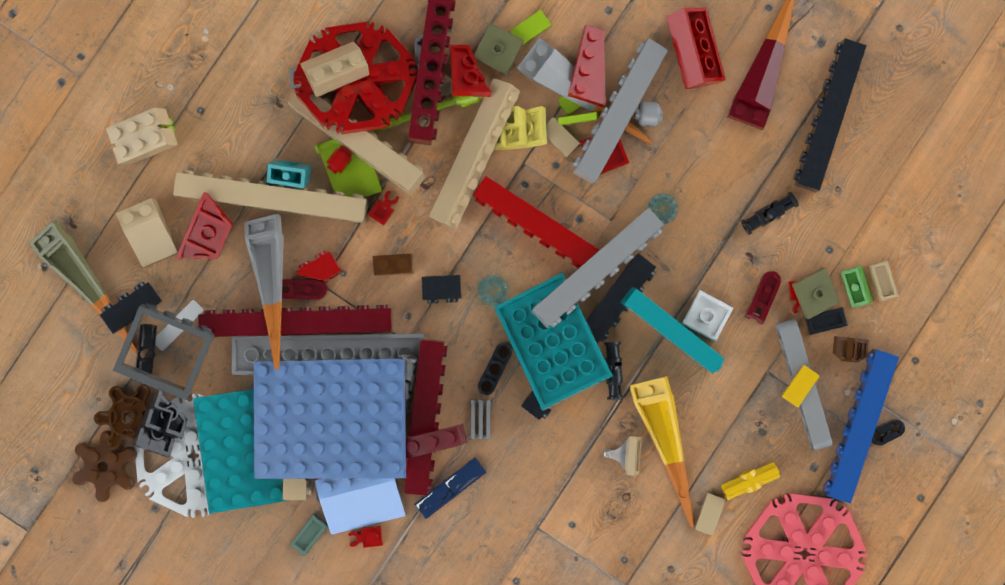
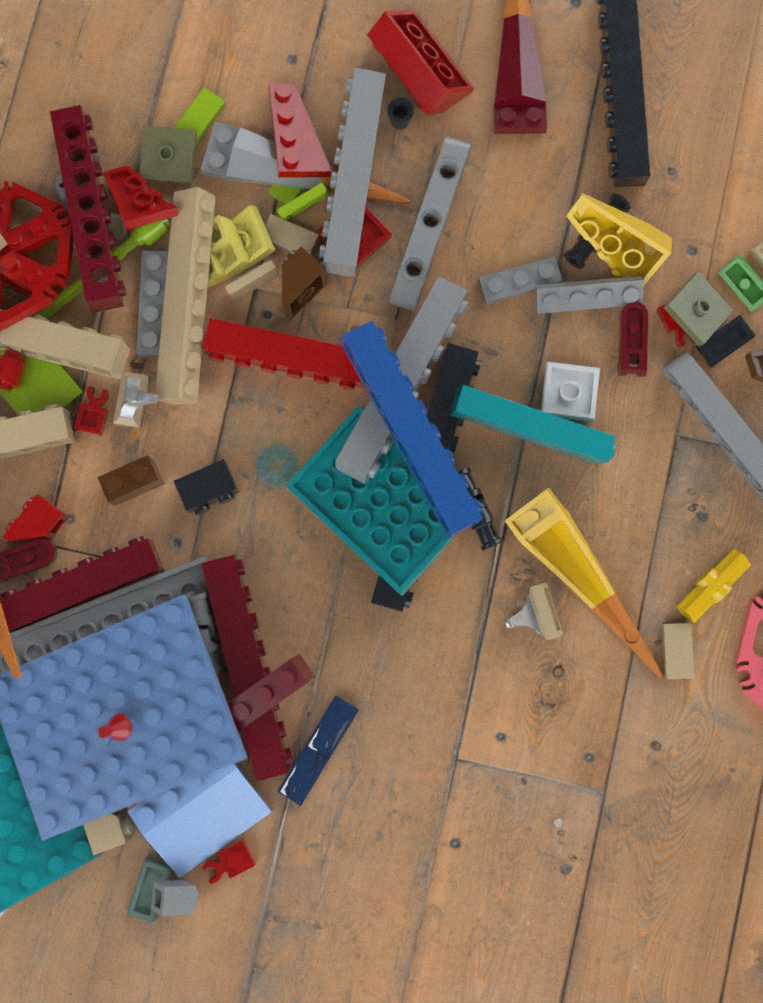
camera: 20 degrees left, 5 degrees down
(323, 546) = (174, 898): none -> light grey brick
(330, 427) = (116, 728): none -> red rock
(413, 210) = (133, 399): none -> piece
(450, 147) = (151, 302): none -> light grey plate
(480, 402) = (316, 620): light grey tile -> none
(488, 376) = (317, 553): black beam -> none
(523, 158) = (251, 280): none -> tan tile
(555, 173) = (301, 281): none -> reddish brown slope
(590, 307) = (411, 430): none -> blue brick
(648, 114) = (392, 165): light grey head -> none
(650, 175) = (424, 238): none -> light grey beam
(666, 200) = (460, 266): clear light blue gear -> none
(668, 73) = (400, 105): none -> black piece
(704, 226) = (519, 280): none -> light grey plate
(746, 254) = (588, 294): none -> light grey plate
(785, 231) = (620, 239): none -> yellow wedge
(800, 386) = (729, 434): yellow tile -> none

